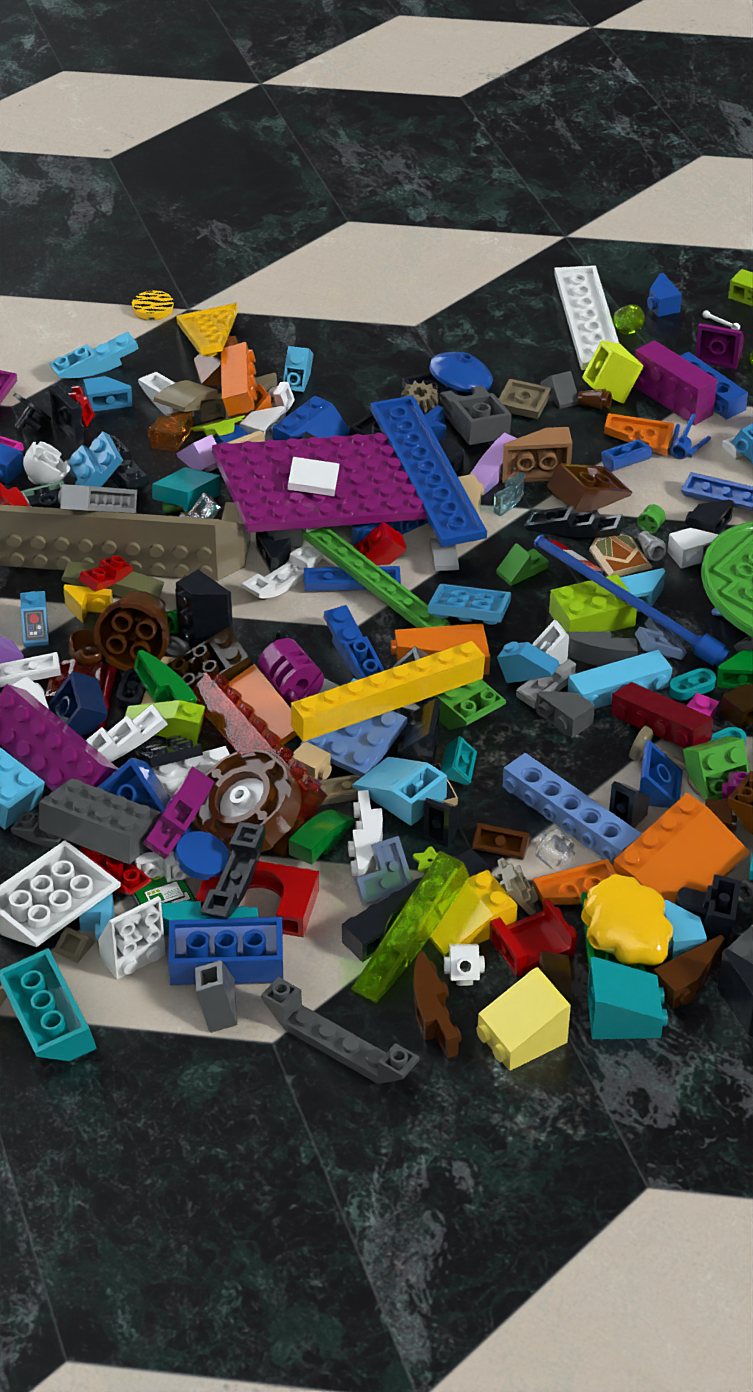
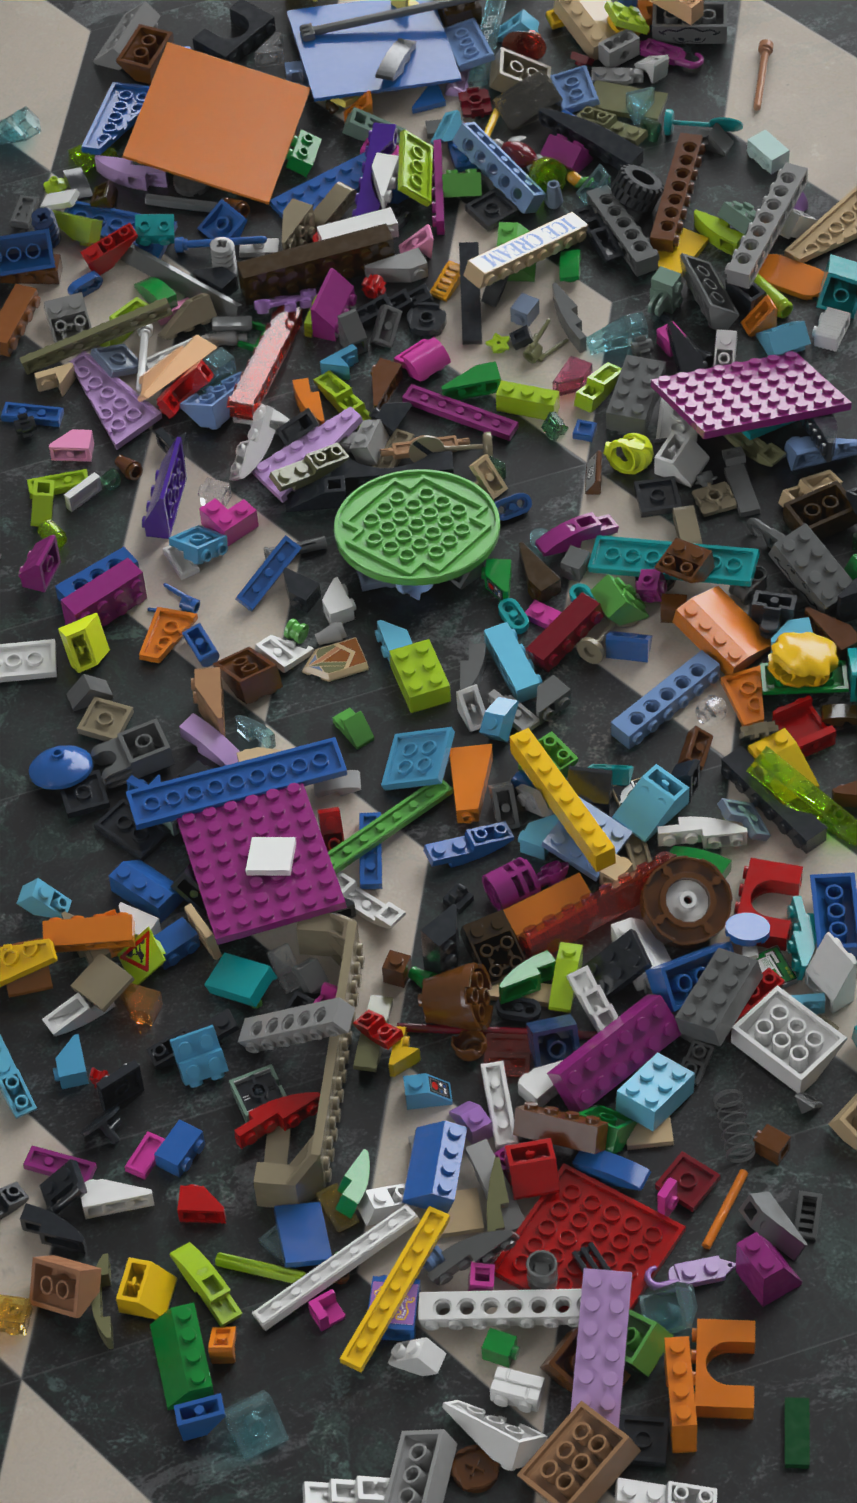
camera: 85 degrees left, 10 degrees up
(44, 464) = (200, 1100): white cylinder -> none
(179, 813) = (705, 932): magenta slope -> none
(199, 455) = (180, 975): lavender slope -> none
(238, 872) = (768, 905): black slope -> none
(282, 395) = (88, 909): white tile -> none
(424, 394) = (113, 793): dark tan gear -> none
(424, 858) = (720, 788): lime plate -> none
(458, 954) = (837, 766): white brick -> none
(568, 523) = (300, 686): black slope -> none
(598, 398) = (110, 664): reddish brown cone -> none
(623, 503) = (283, 652): none -> white wing
(628, 803) = (664, 659): black slope -> none
(660, 638) = (467, 629): sand blue plate -> none
(705, 646) = (380, 676): blue flag -> none

